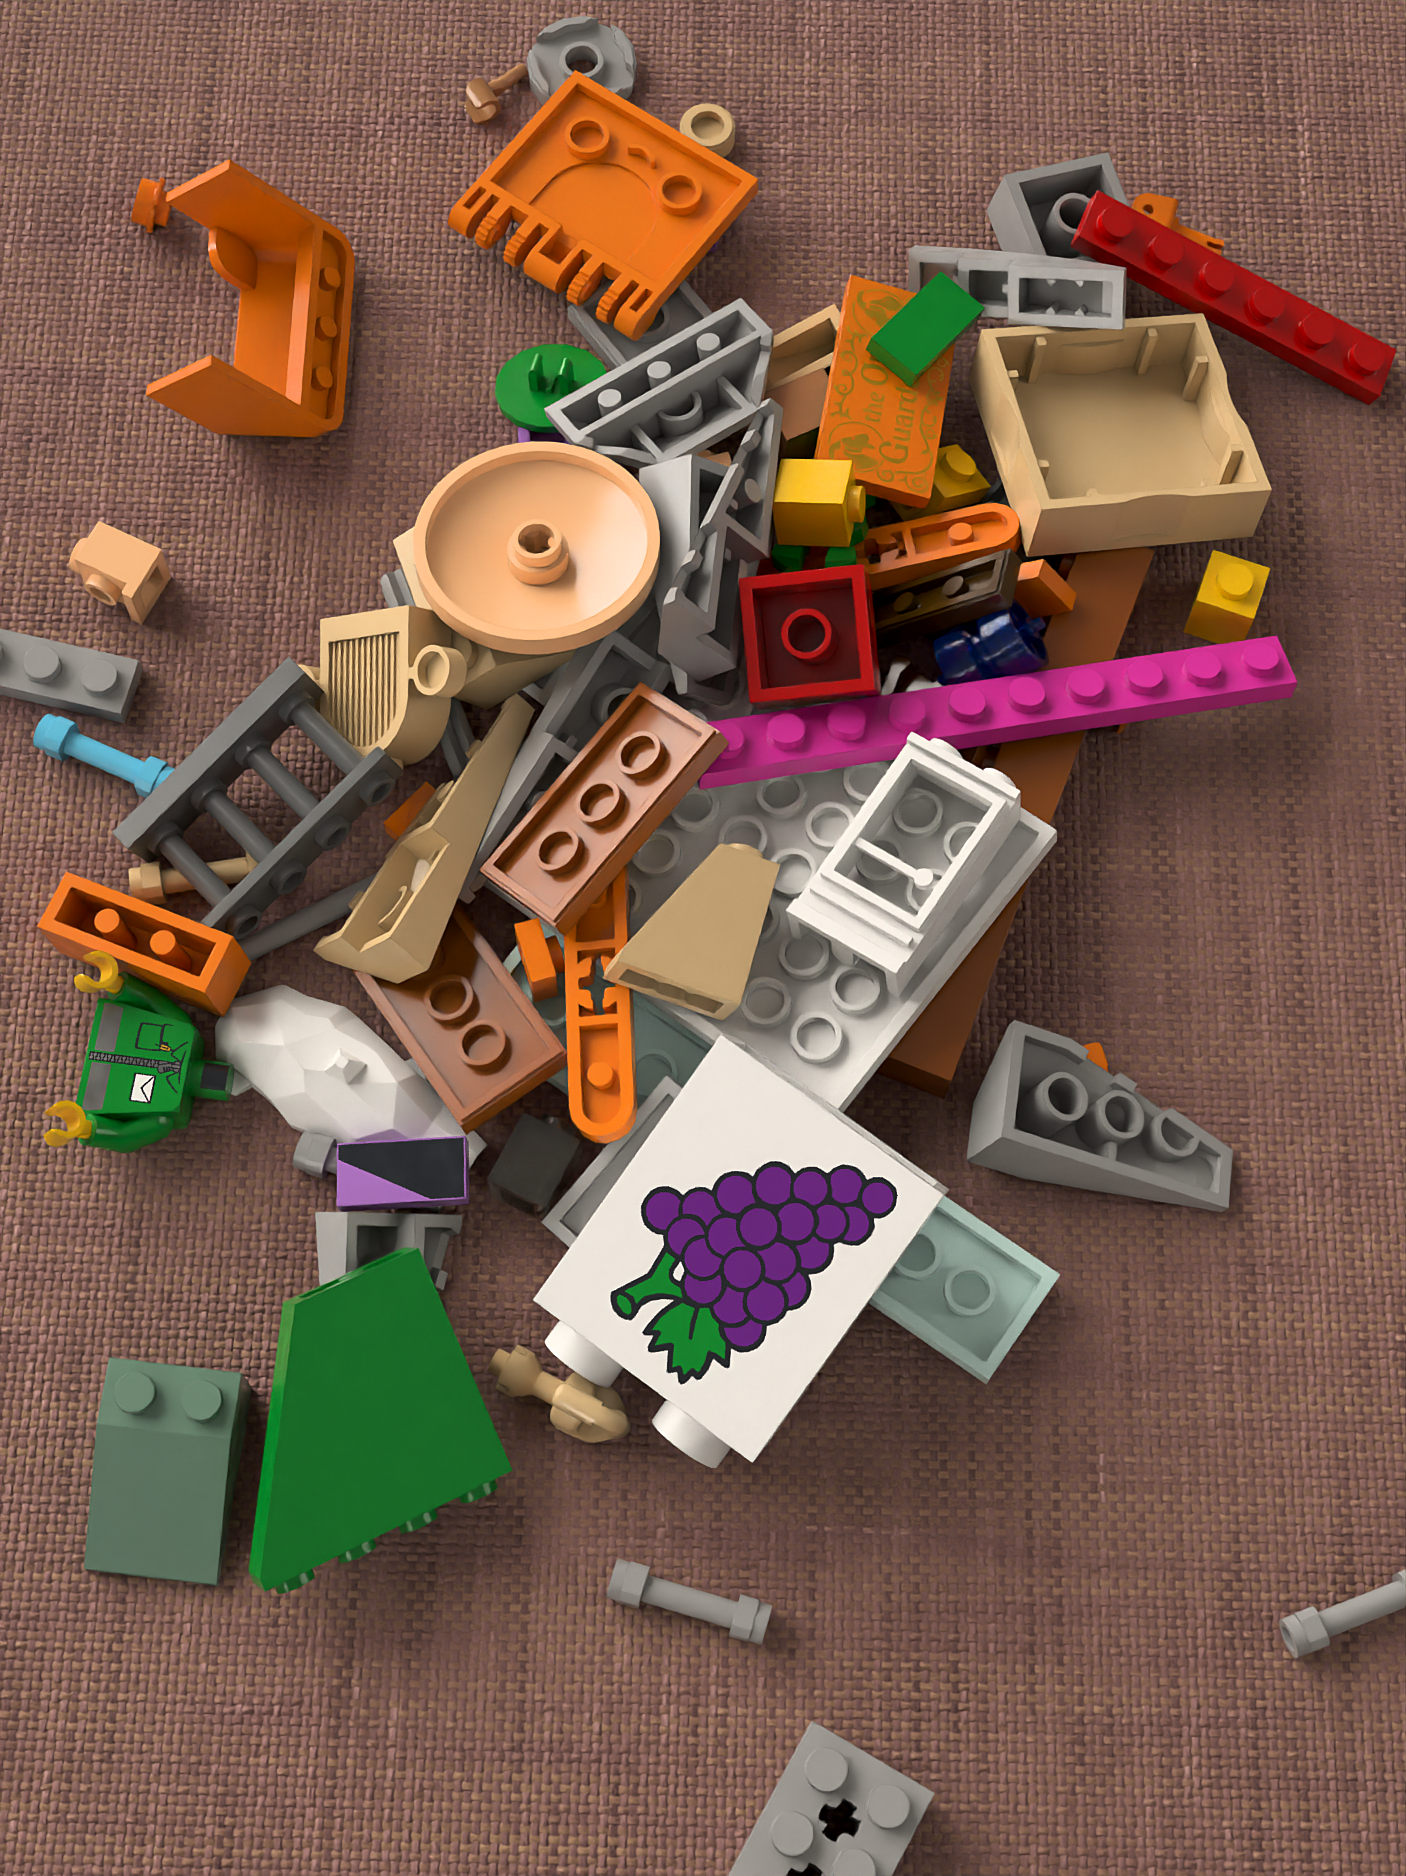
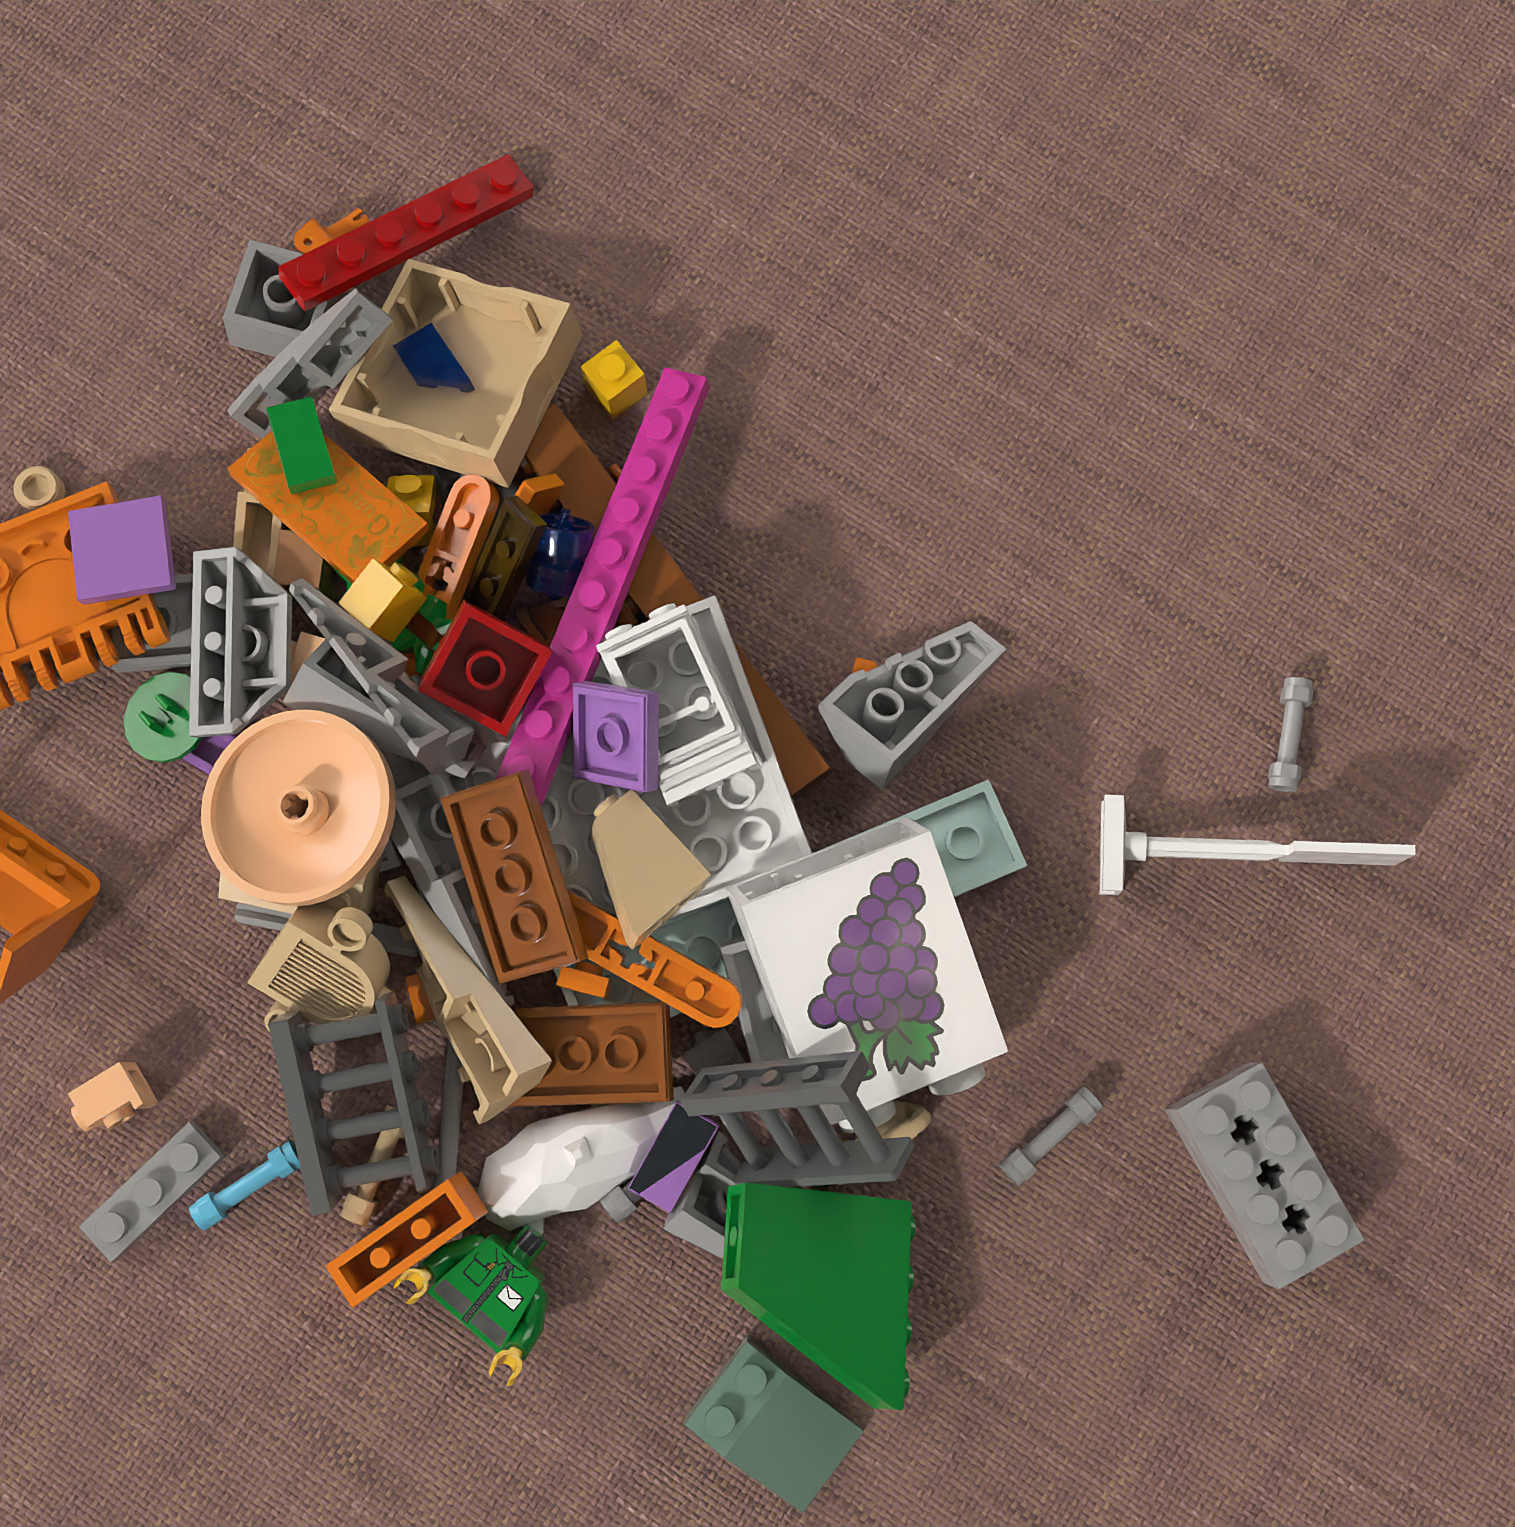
camera: 55 degrees left, 10 degrees up
(563, 1231) = (801, 1085): none -> dark grey fence
(695, 233) = (121, 550): none -> medium lavender tile
(826, 812) = (615, 735): none -> medium lavender tile
(1084, 1474) = (1119, 846): none -> white piece
(1111, 404) = (431, 360): none -> clear blue tile

